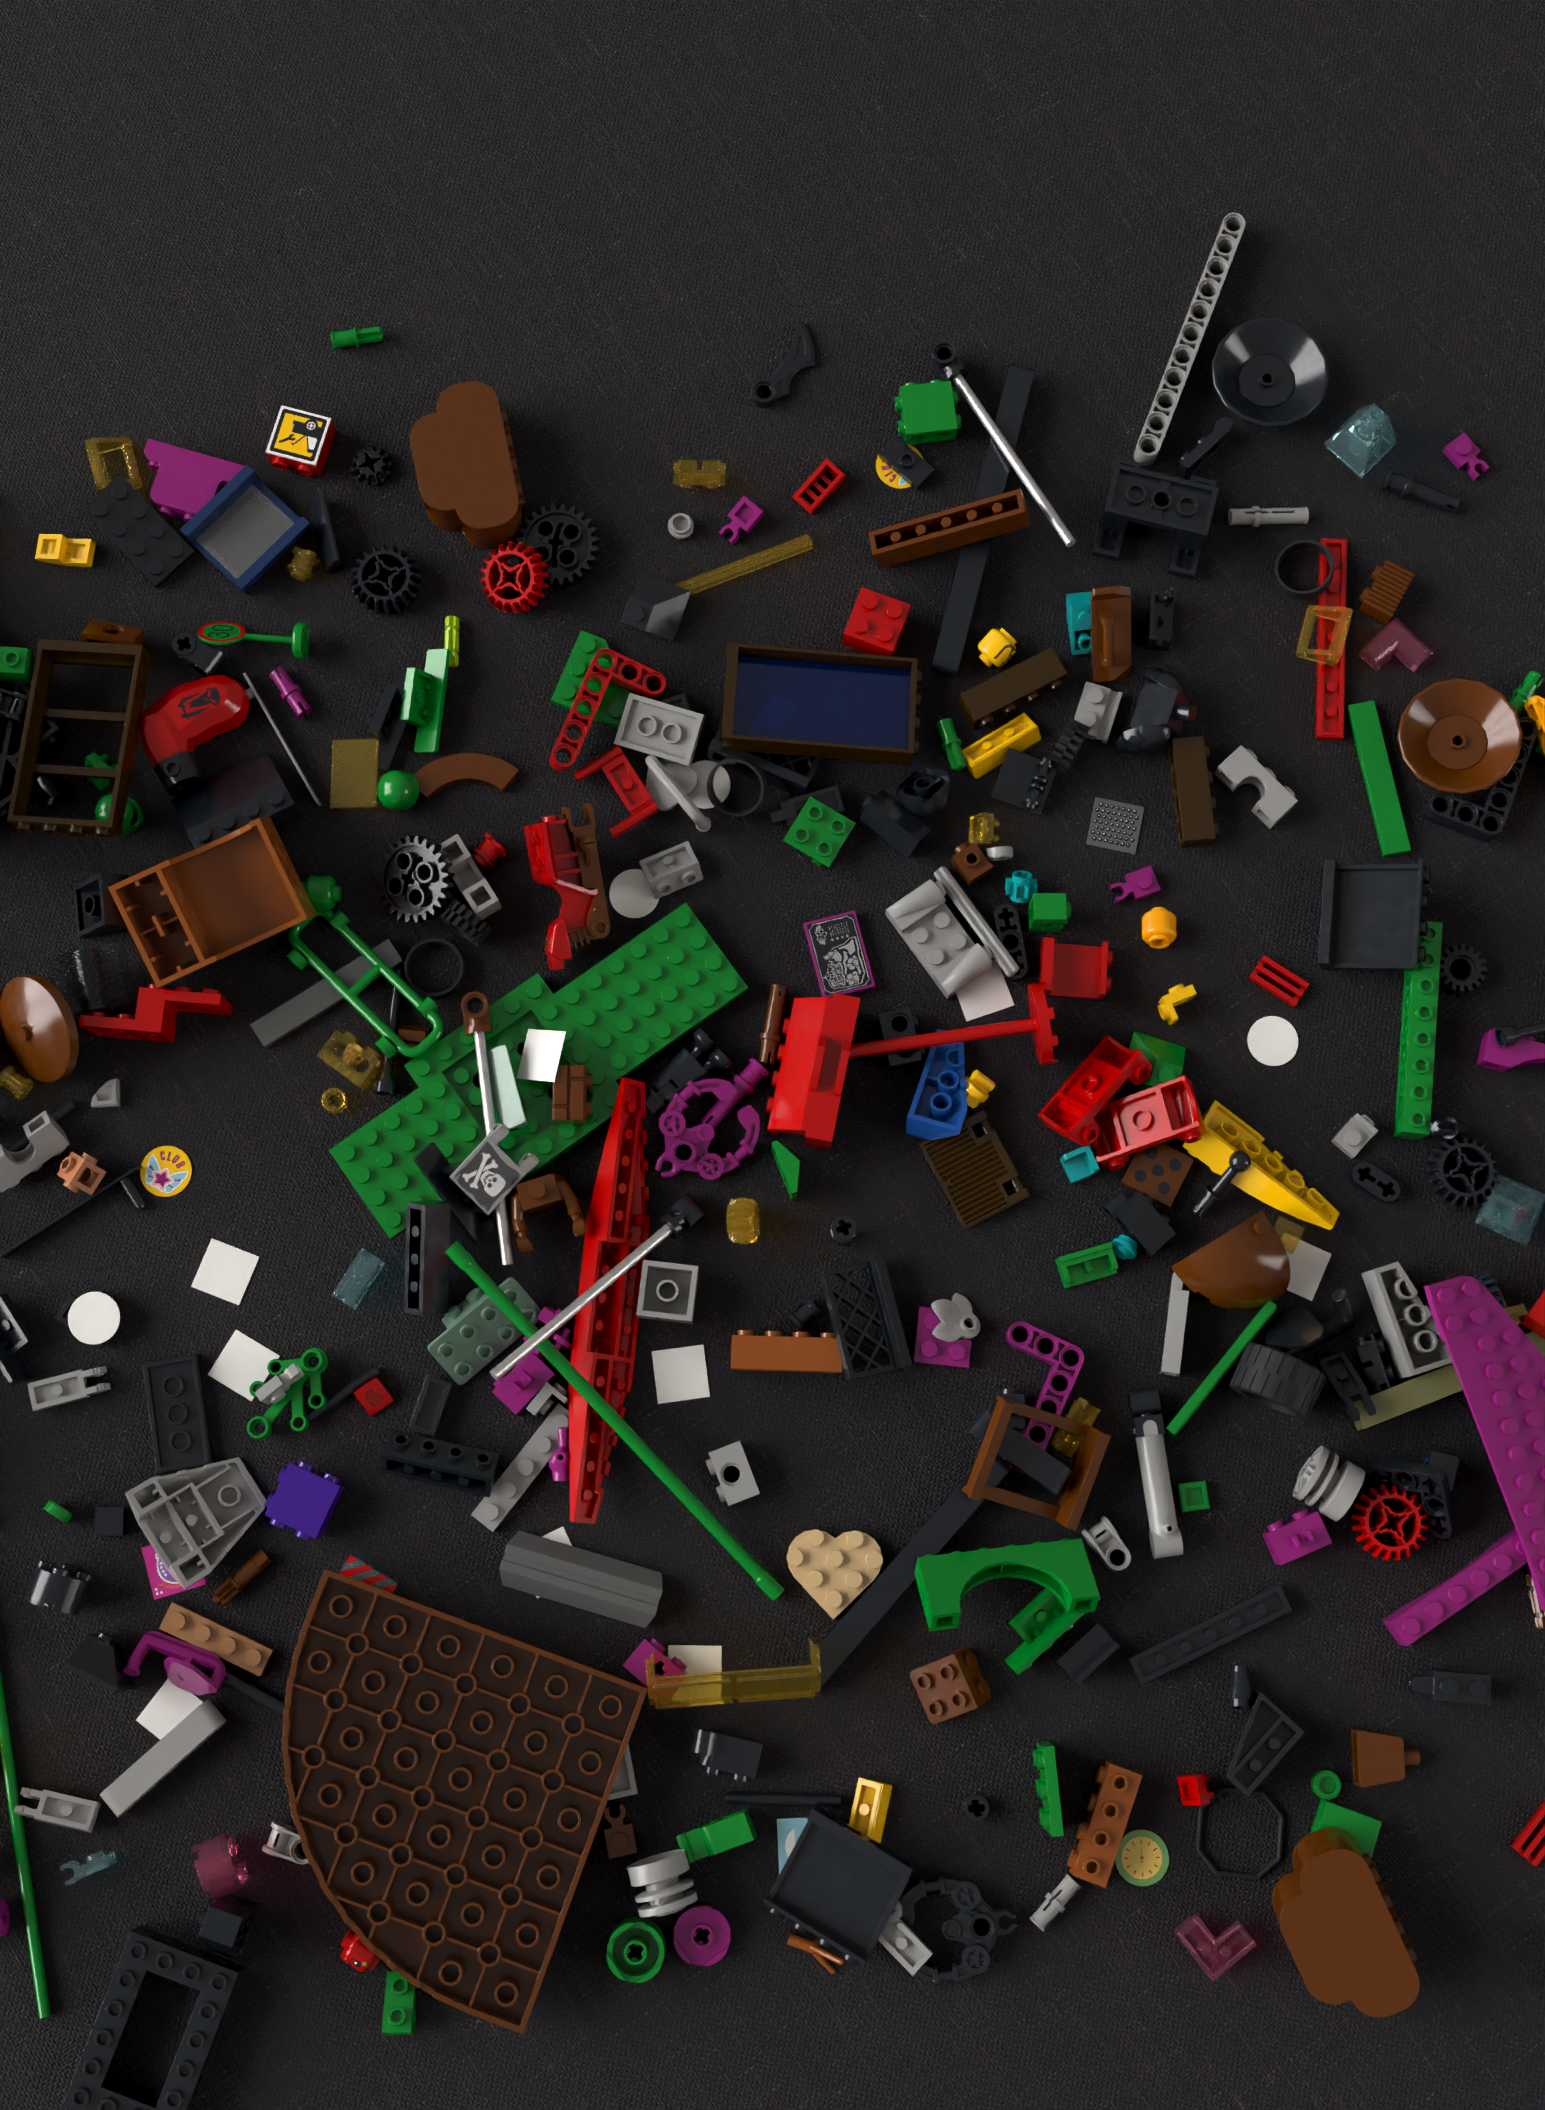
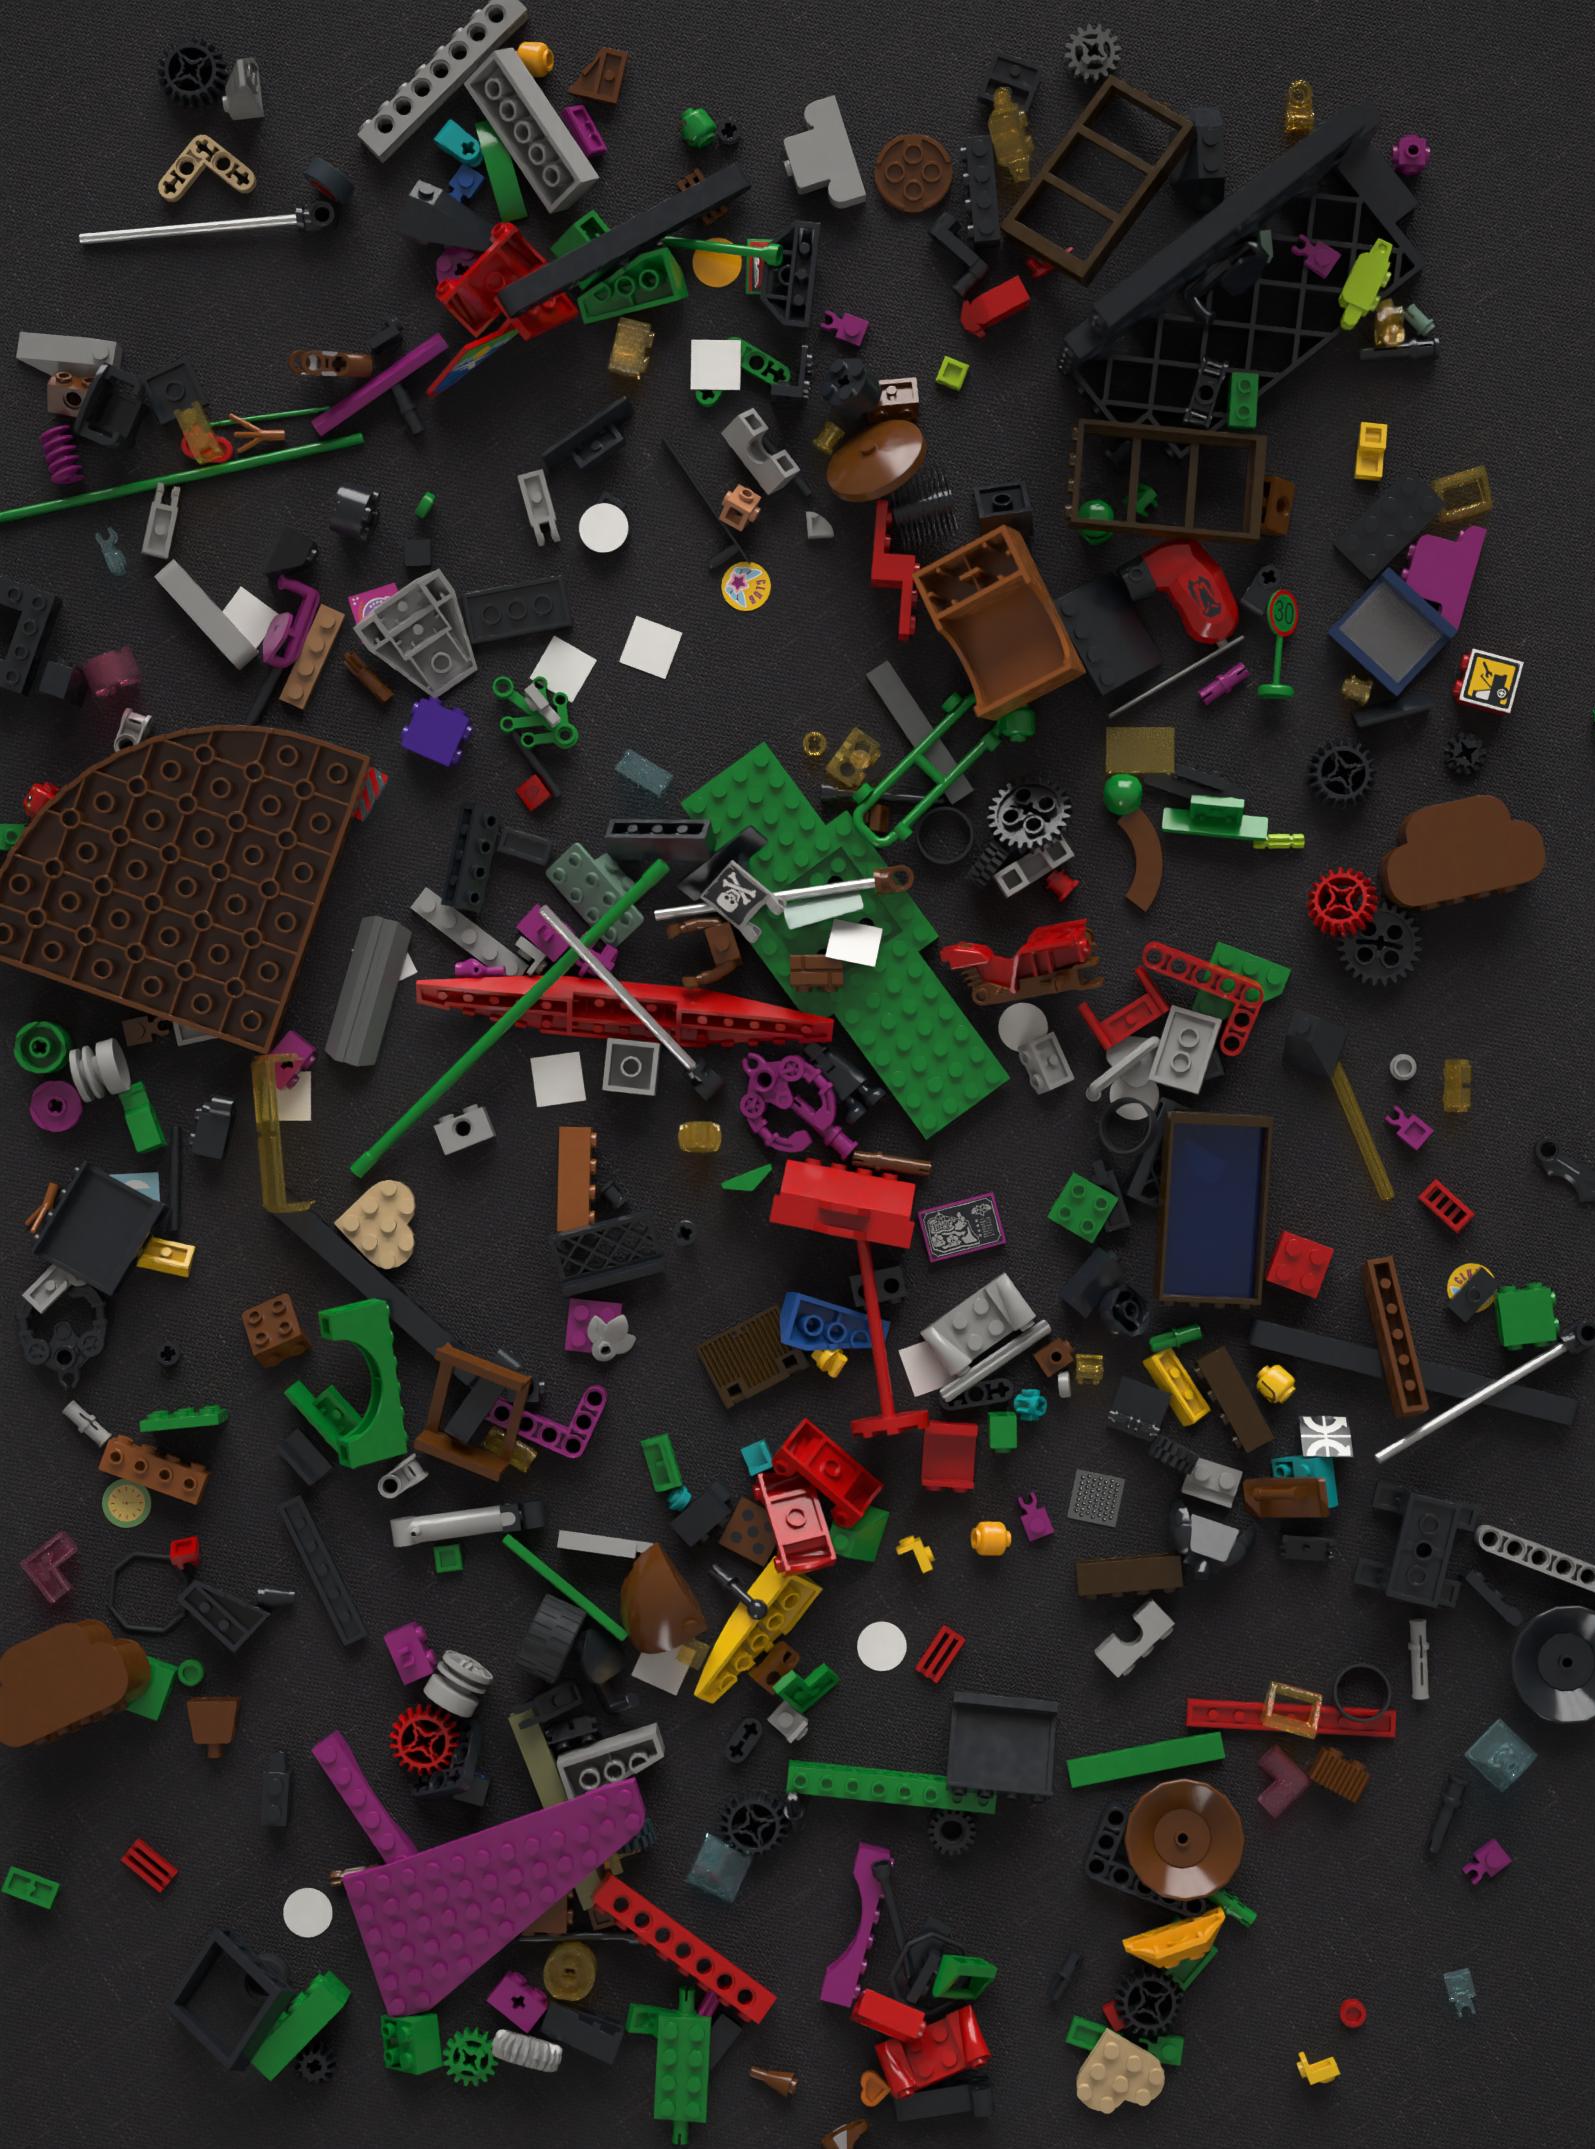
camera: 90 degrees right, 10 degrees up
(1049, 599) = (1325, 1436): none -> sticker
(1299, 1147) = (776, 1665): none -> reddish brown leg
(1324, 1118) = (804, 1693): none -> green plate

